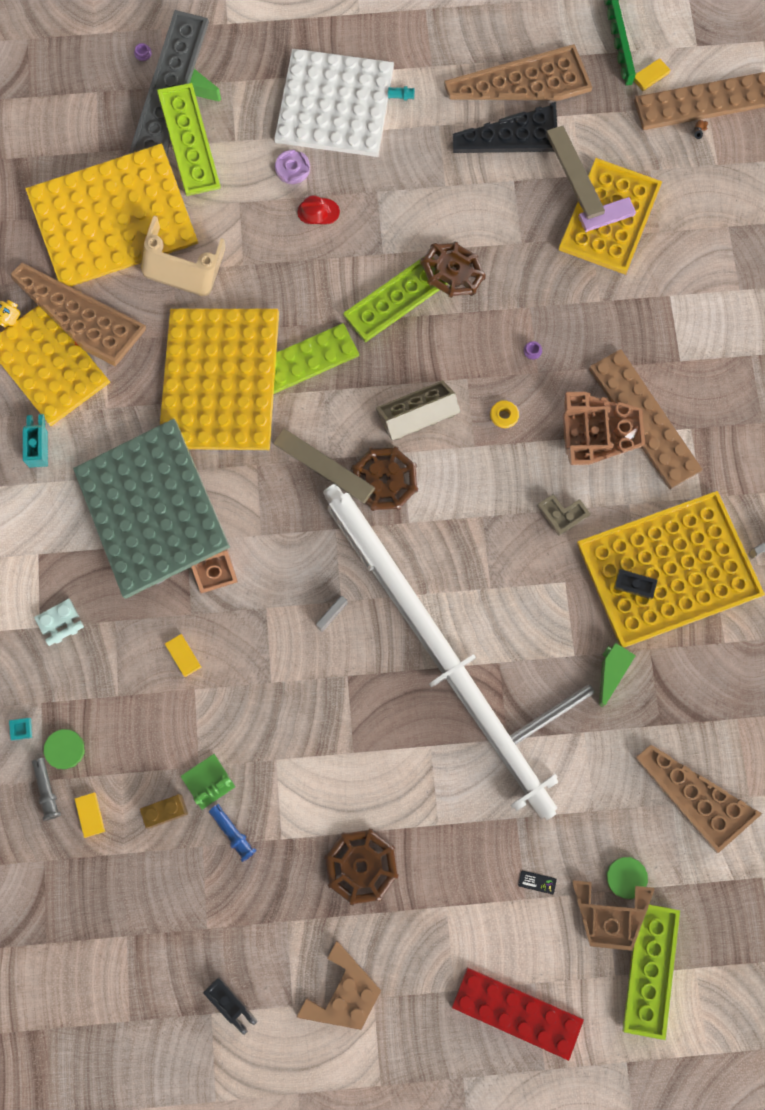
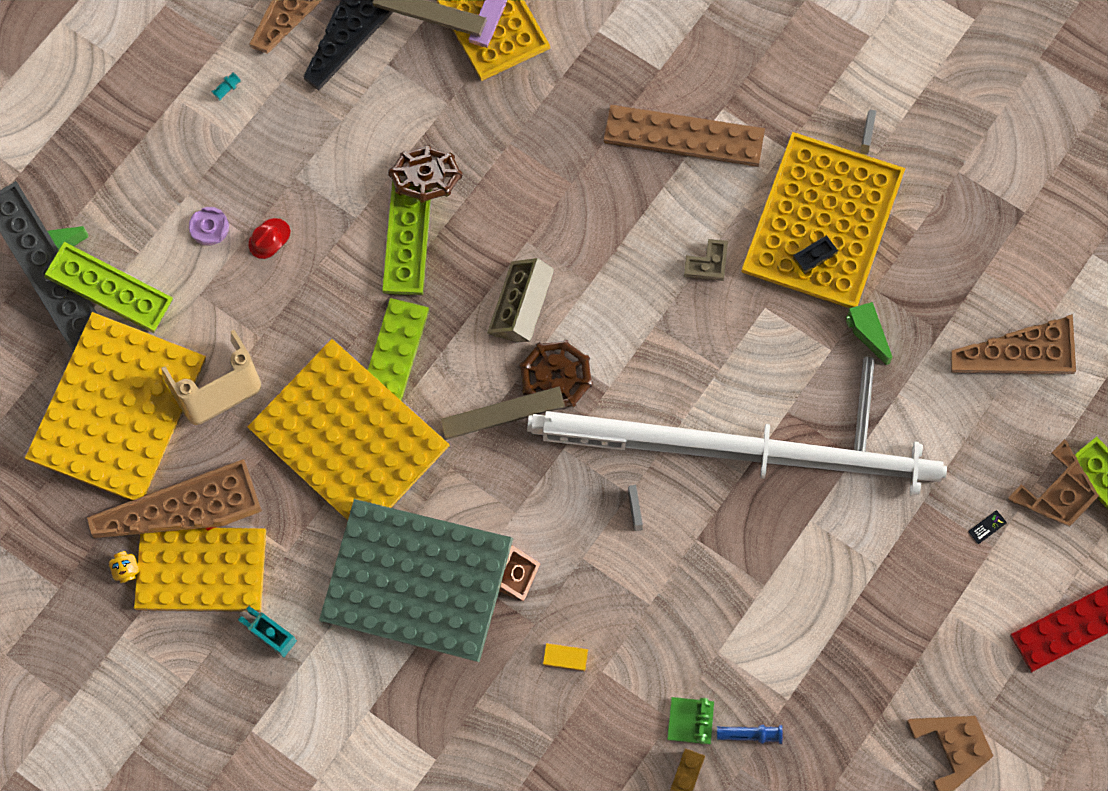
camera: 45 degrees left, 5 degrees down
(56, 617) = (440, 738): light aqua plate -> none
(334, 102) = (182, 145): white plate -> none
(349, 867) = (857, 662): reddish brown plate -> none
(508, 406) = (588, 229): yellow piece -> none
(532, 350) = (550, 171): medium lavender plate -> none
(599, 428) = (664, 175): nougat wedge -> none
(624, 875) = (1036, 456): bright green tile -> none

